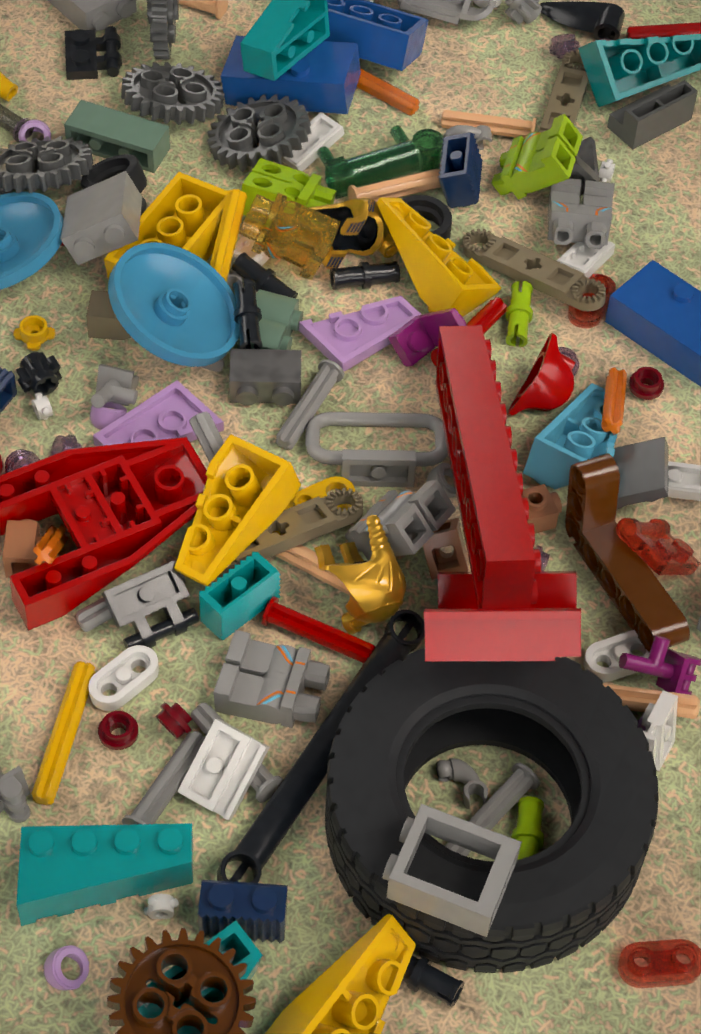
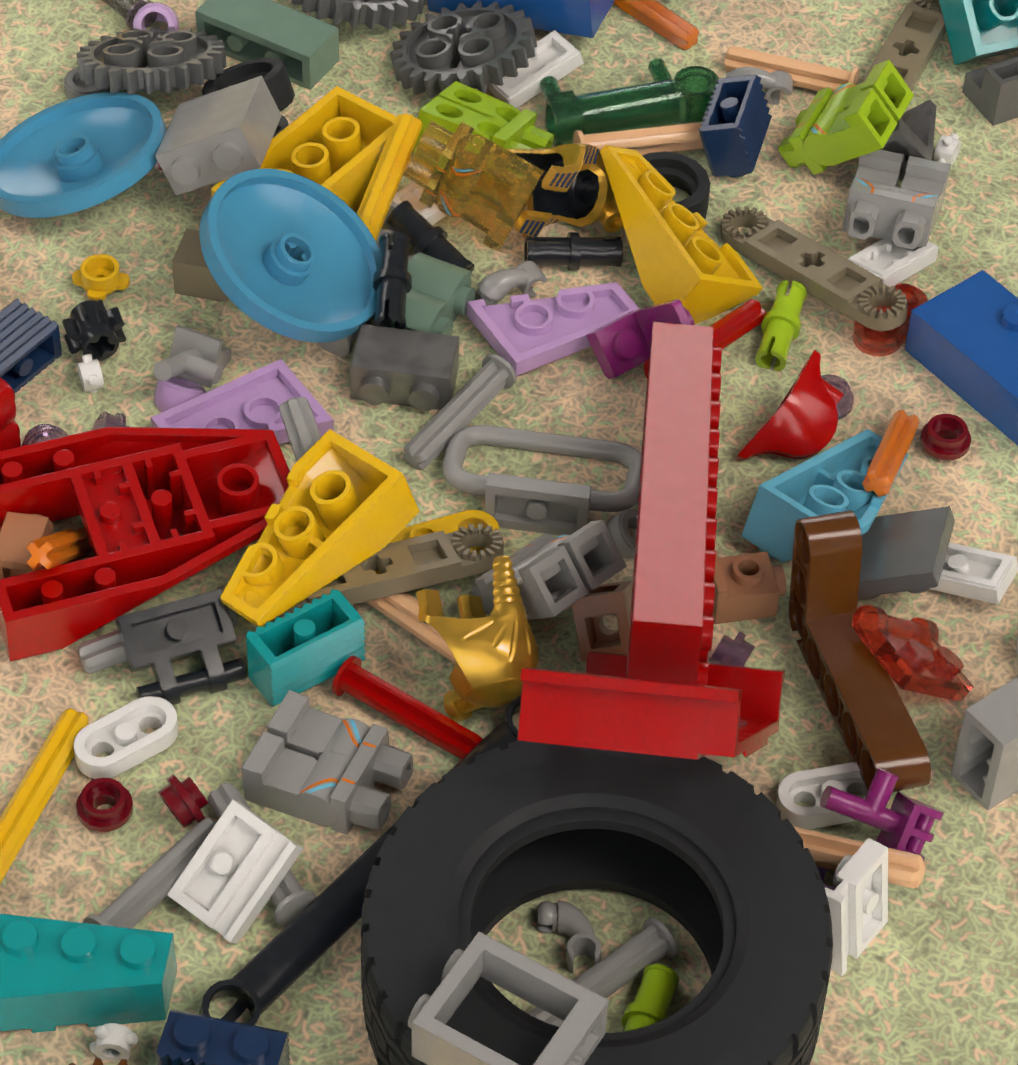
camera: 10 degrees right, 5 degrees down
(317, 306) = (499, 283): none -> light grey arm

